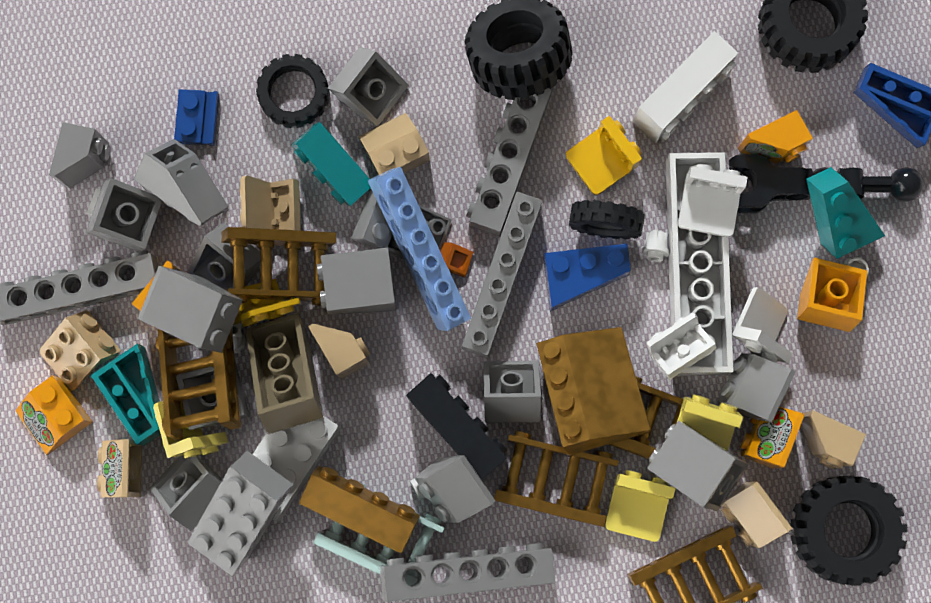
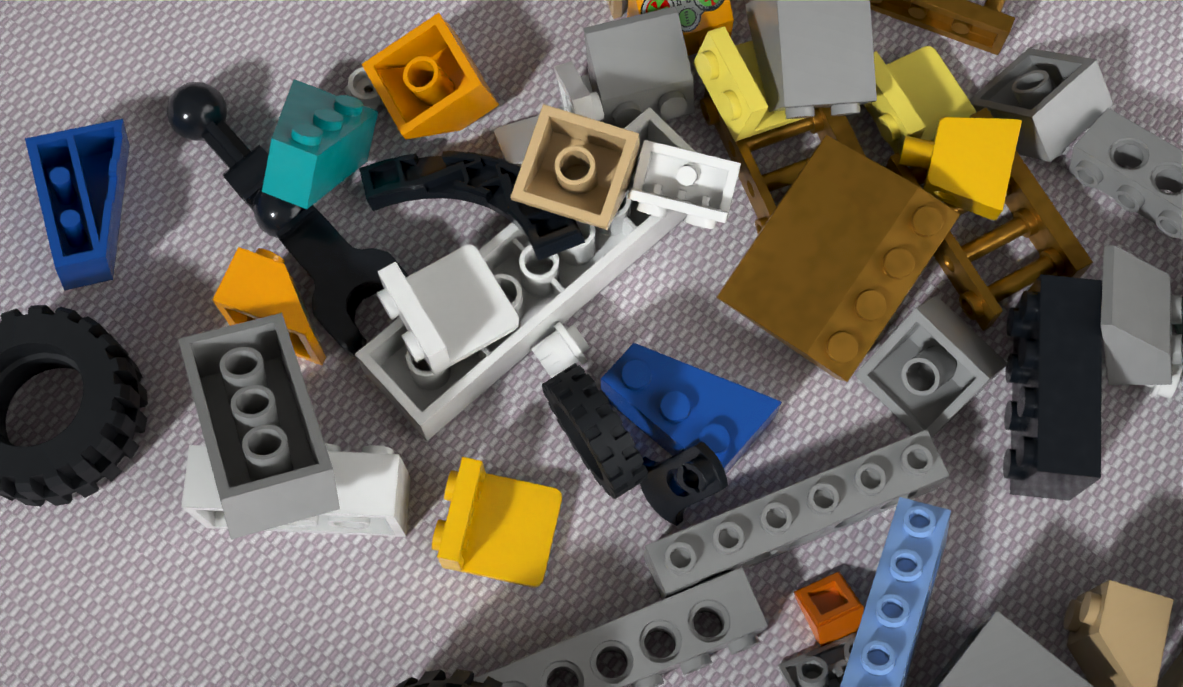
camera: 135 degrees left, 10 degrees down
(556, 240) = (698, 474): none -> black piece
(585, 485) = (967, 162): none -> yellow torso
(585, 562) = (1053, 97): none -> light grey slope
(721, 79) = (259, 426): none -> light grey brick
(725, 302) = (577, 167): none -> tan slope
(758, 274) = (470, 179): none -> black tile

